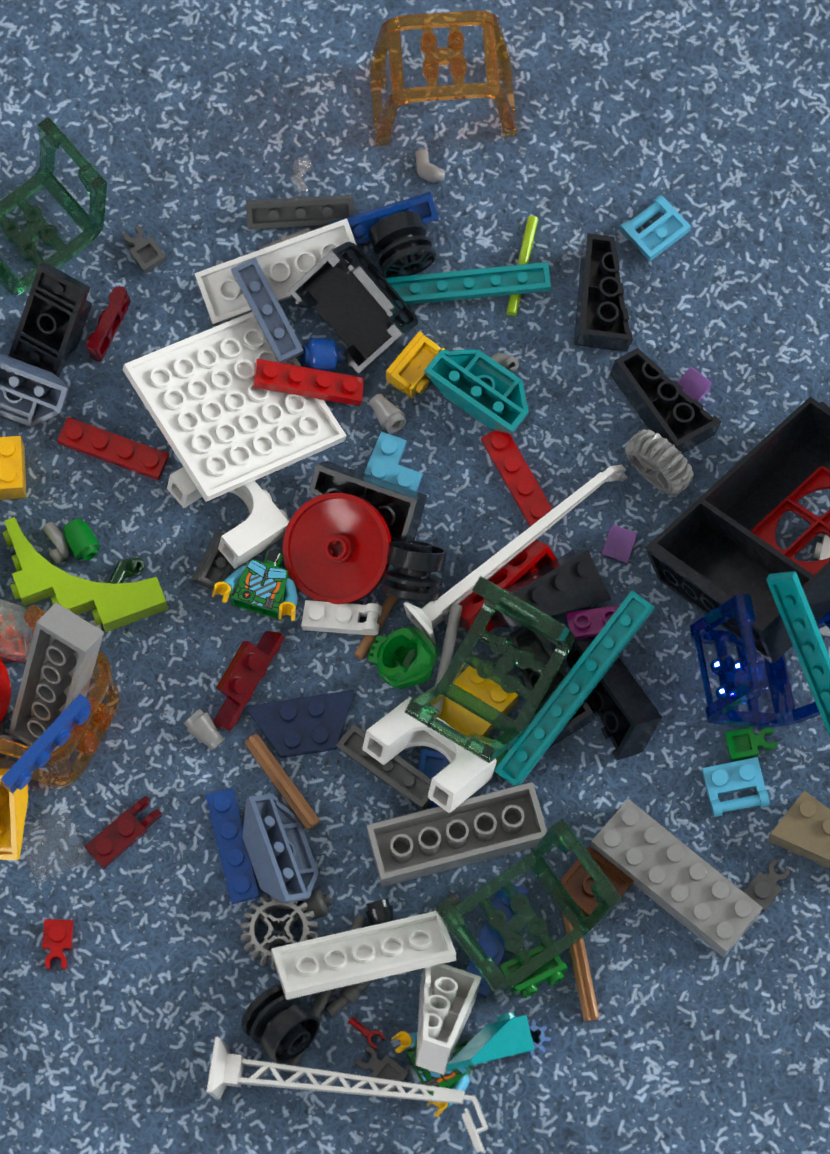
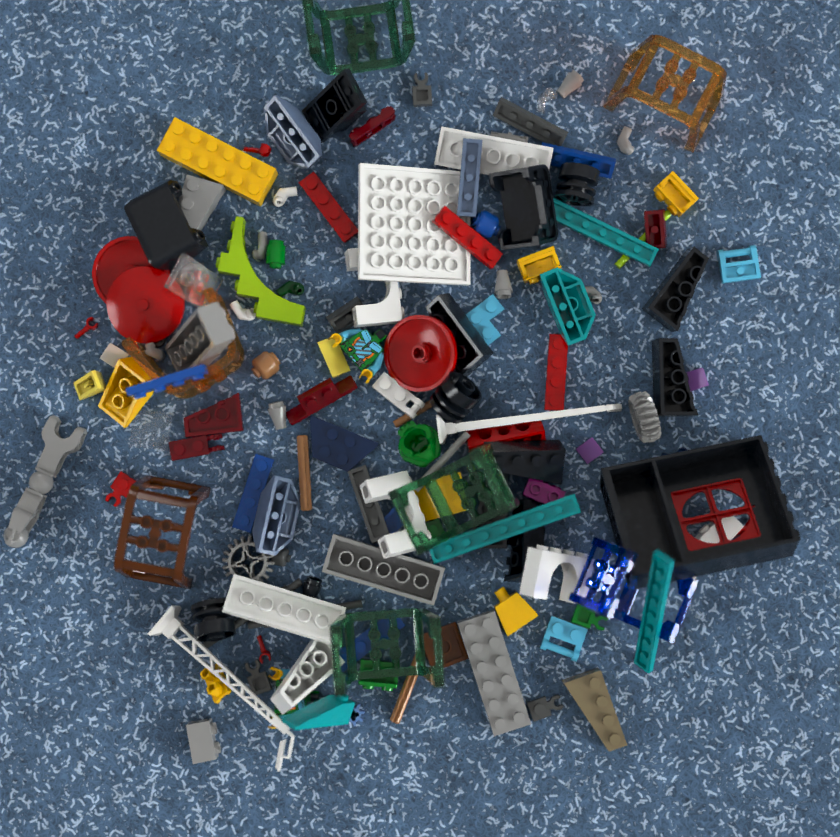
camera: 30 degrees right, 15 degrees up
(46, 464) = (282, 195): none -> white arm
(132, 778) = (217, 419): none -> dark red wing
(136, 957) = (140, 570): none -> reddish brown windscreen
(151, 678) = (265, 365): none -> medium nougat head
(230, 620) = (334, 357): none -> light yellow slope
(319, 140) = (570, 83): none -> light grey cone
(332, 1106) = (215, 686): none -> yellow hips
(527, 192) = (675, 194): none -> yellow hinge
(528, 242) = (655, 228): none -> dark red slope
(649, 707) = (540, 566): none -> white arch
(651, 788) = (513, 611): none -> yellow torso

